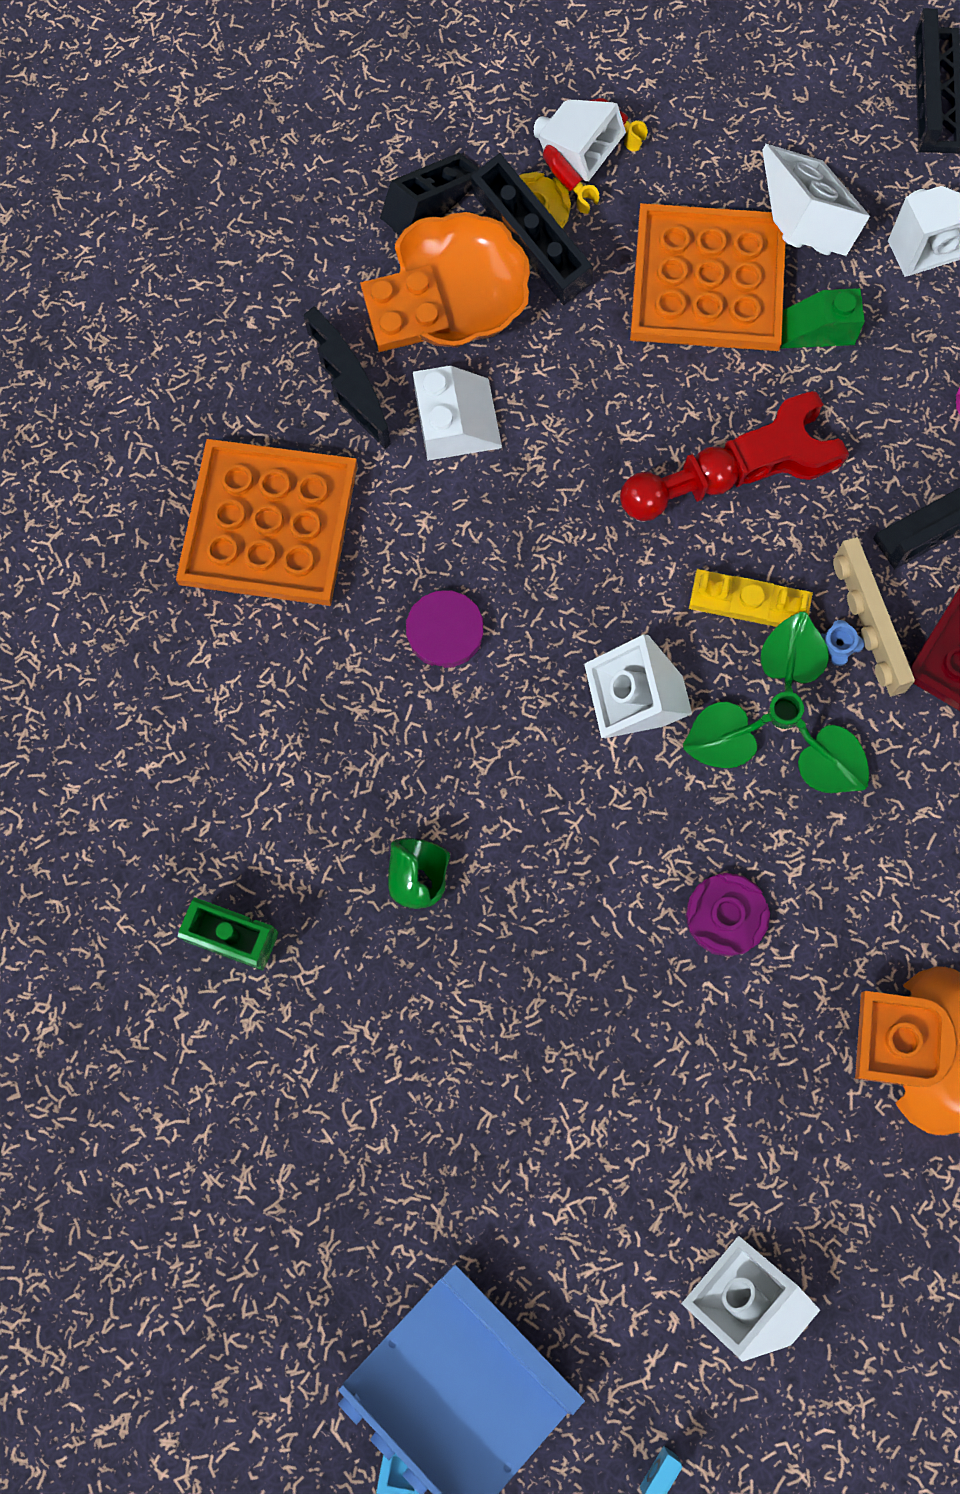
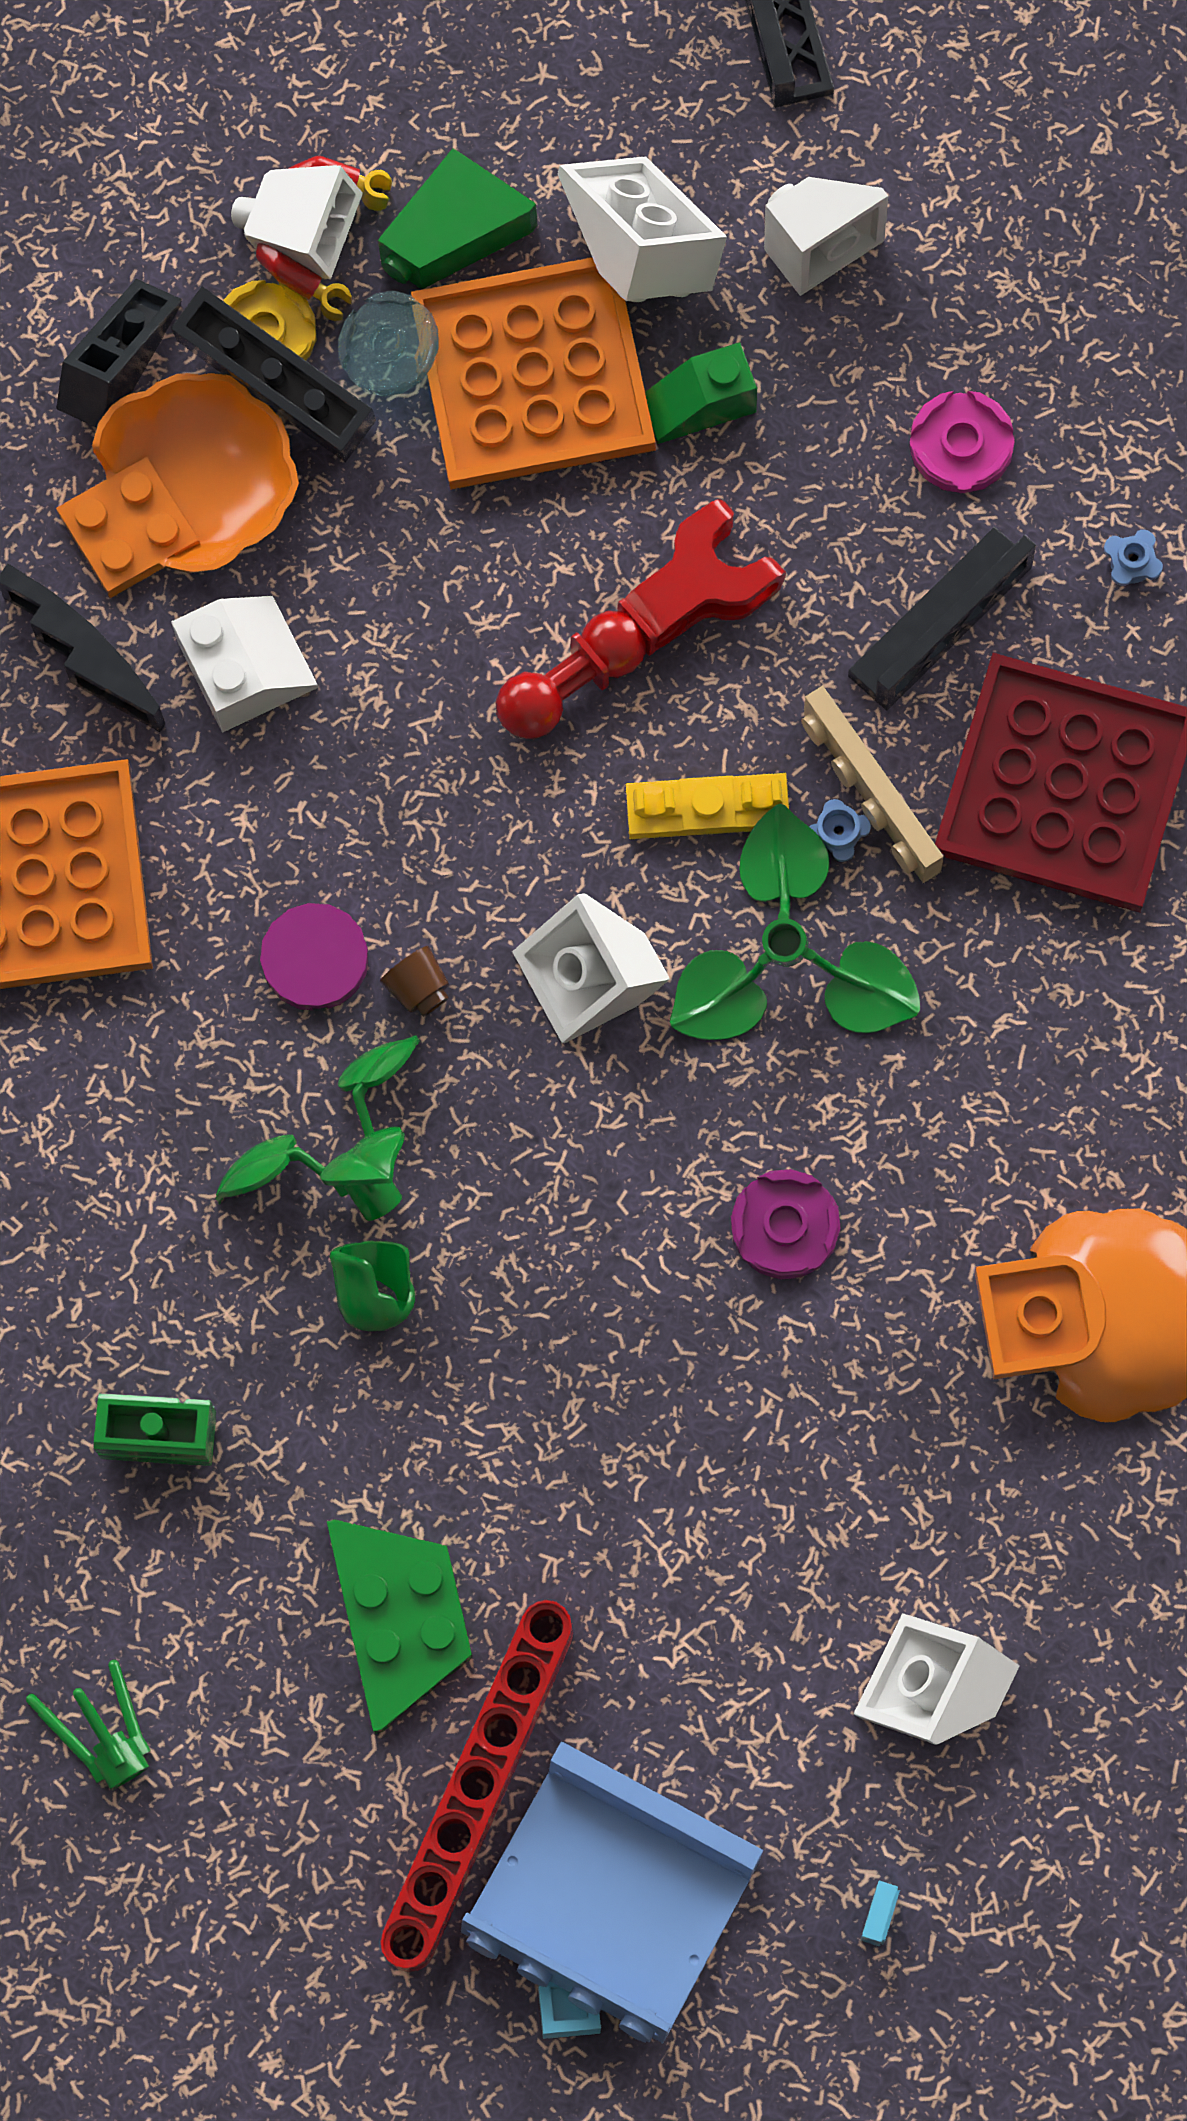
camera: 15 degrees left, 0 degrees up
(123, 1170) = (117, 1756): none -> green plant
(364, 1288) = (477, 1756): none -> red beam
(365, 1124) = (400, 1615): none -> green wing
(429, 789) = (363, 1170): none -> green plant
(511, 666) = (417, 982): none -> reddish brown hat
(615, 233) = (388, 343): none -> clear light blue tile
(682, 167) = (454, 223): none -> green slope

